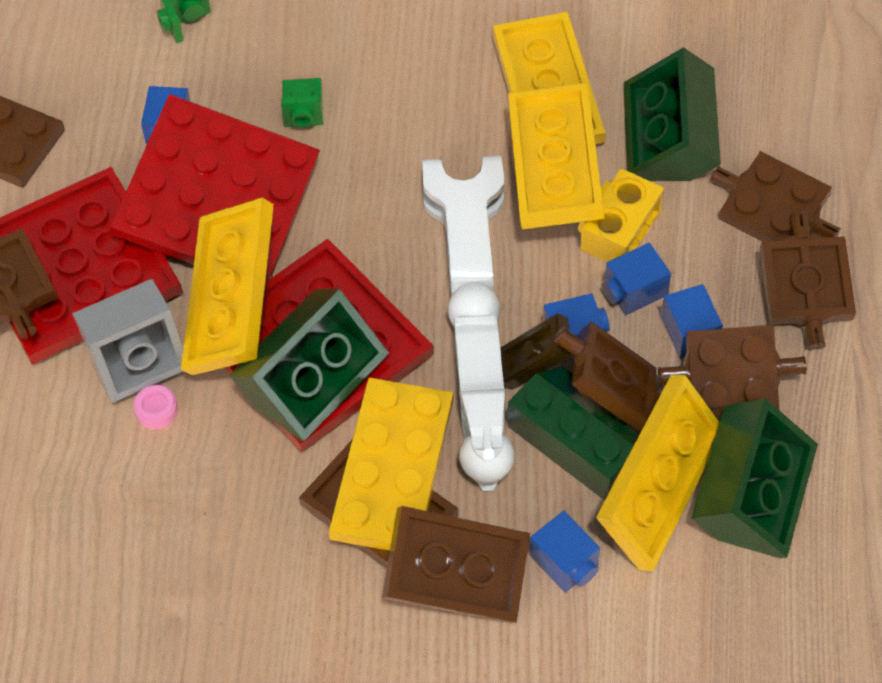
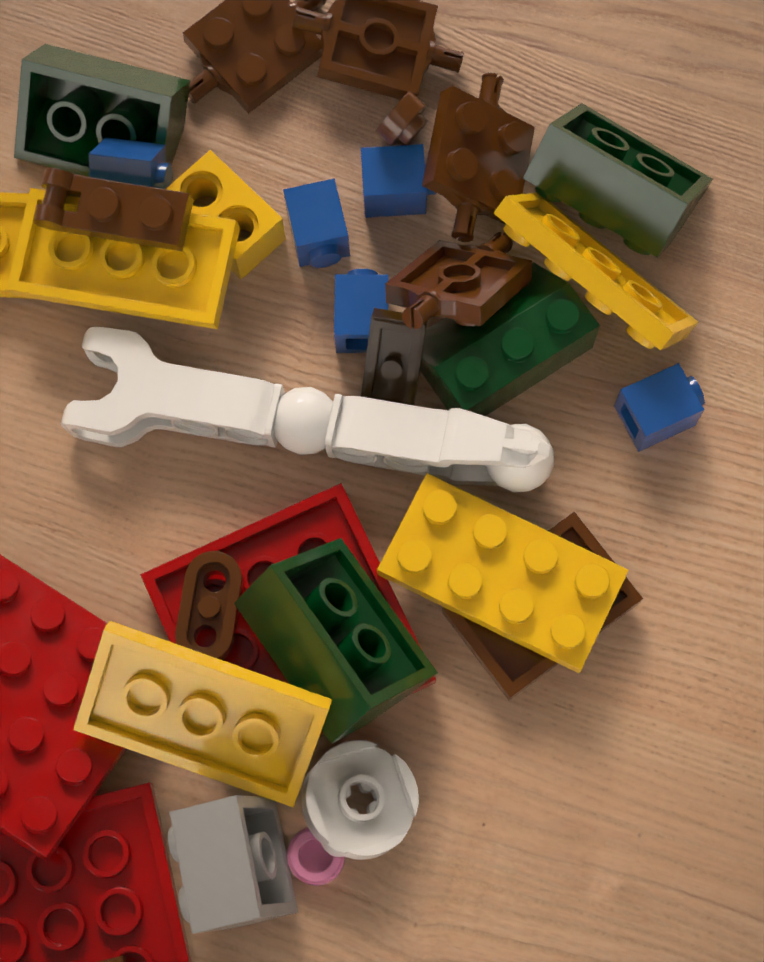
camera: 75 degrees left, 15 degrees up
(205, 393) = (343, 829): none -> white plate
(307, 276) = (208, 609): none -> reddish brown plate
(456, 565) = (661, 531): reddish brown plate -> none
(583, 133) = (114, 210): none -> reddish brown plate
(627, 143) = (131, 163): none -> blue brick
(738, 304) = (403, 120): none -> reddish brown plate

